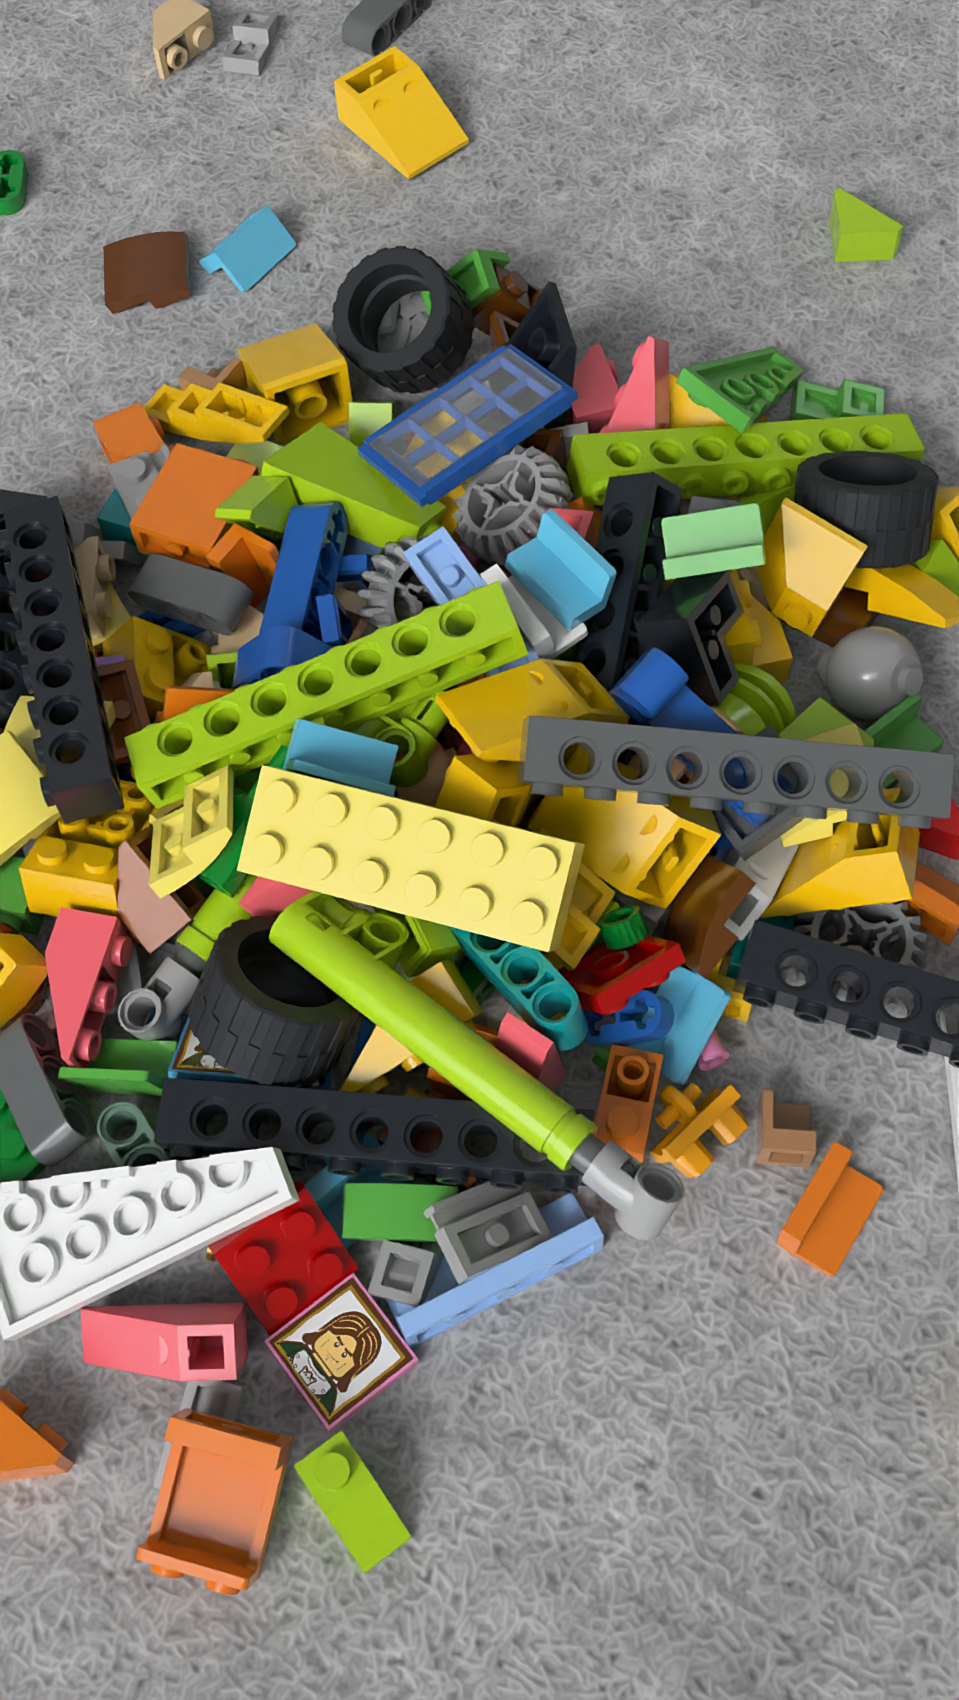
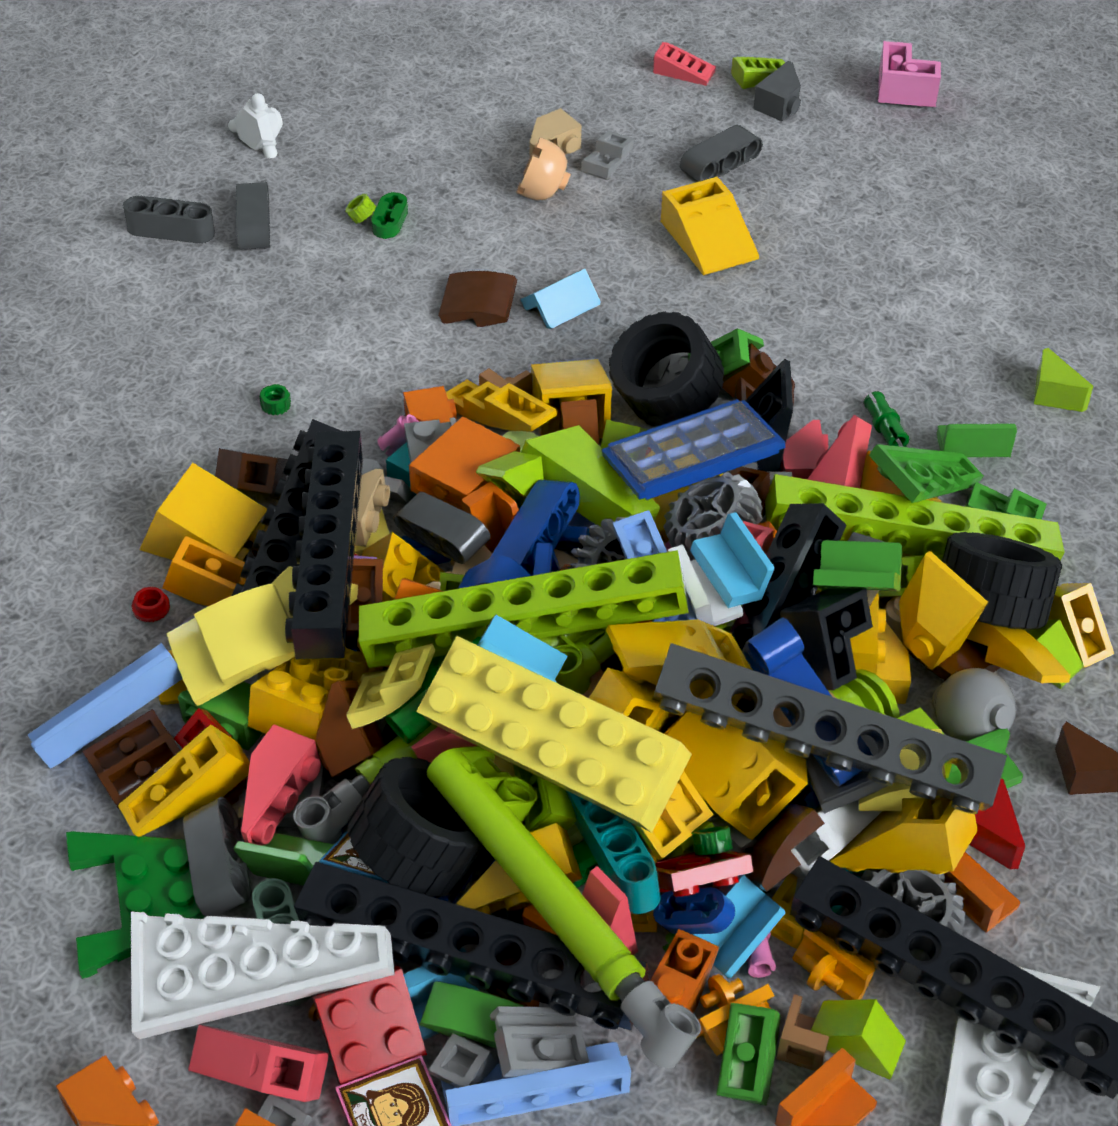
camera: 10 degrees right, 15 degrees down
(99, 481) = (396, 435): none -> bright pink pin
(181, 82) = (544, 172): none -> light nougat cylinder
(317, 406) = (582, 414): none -> dark orange slope
(674, 324) = (886, 419): none -> green pin
(728, 1173) = (749, 1053): none -> bright green slope
(784, 324) = (977, 439): none -> bright green panel
(794, 1039) = (830, 965): none -> light orange hips
(843, 1111) = (863, 1032): none -> lime slope

